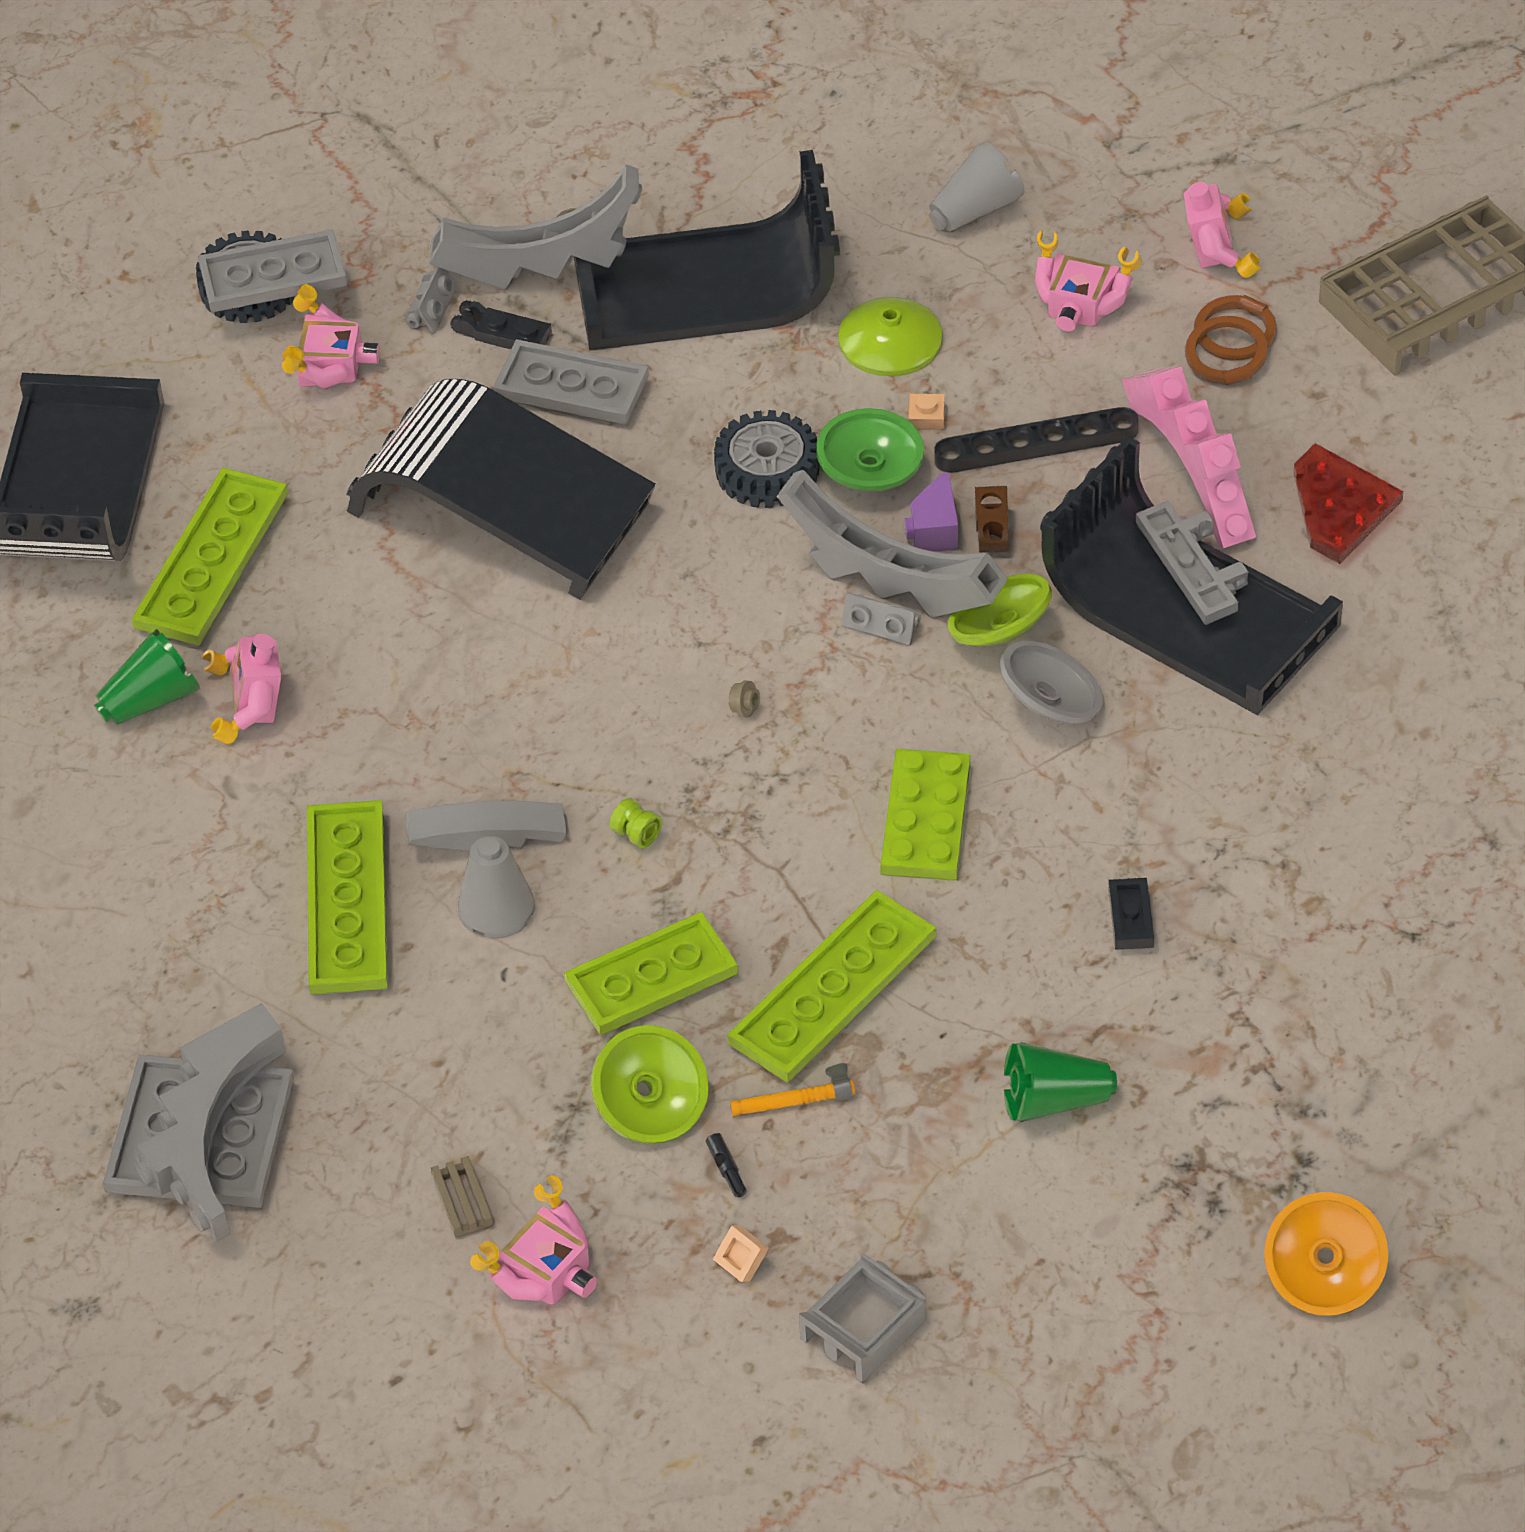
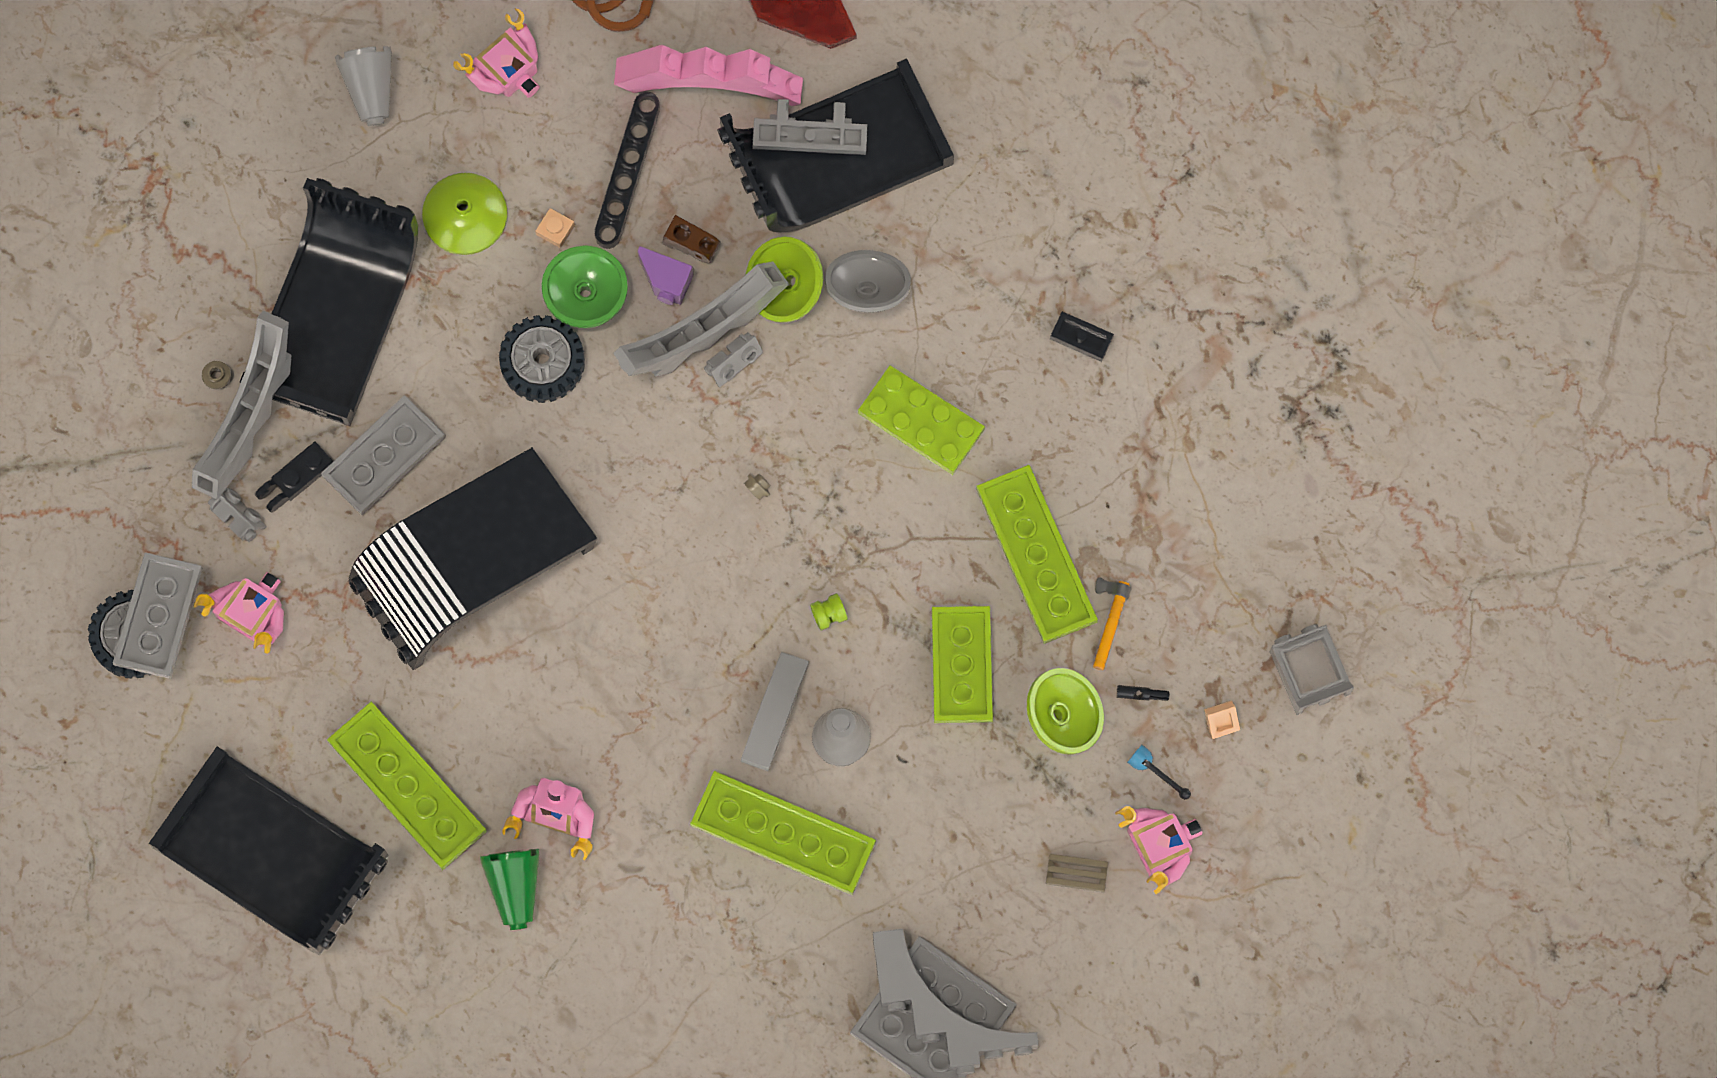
camera: 65 degrees left, 25 degrees up
(641, 1196) = (1143, 759): none -> hinge
(1053, 1082) = (1197, 460): green cone -> none
(1334, 1224) = (1432, 368): light orange dish -> none

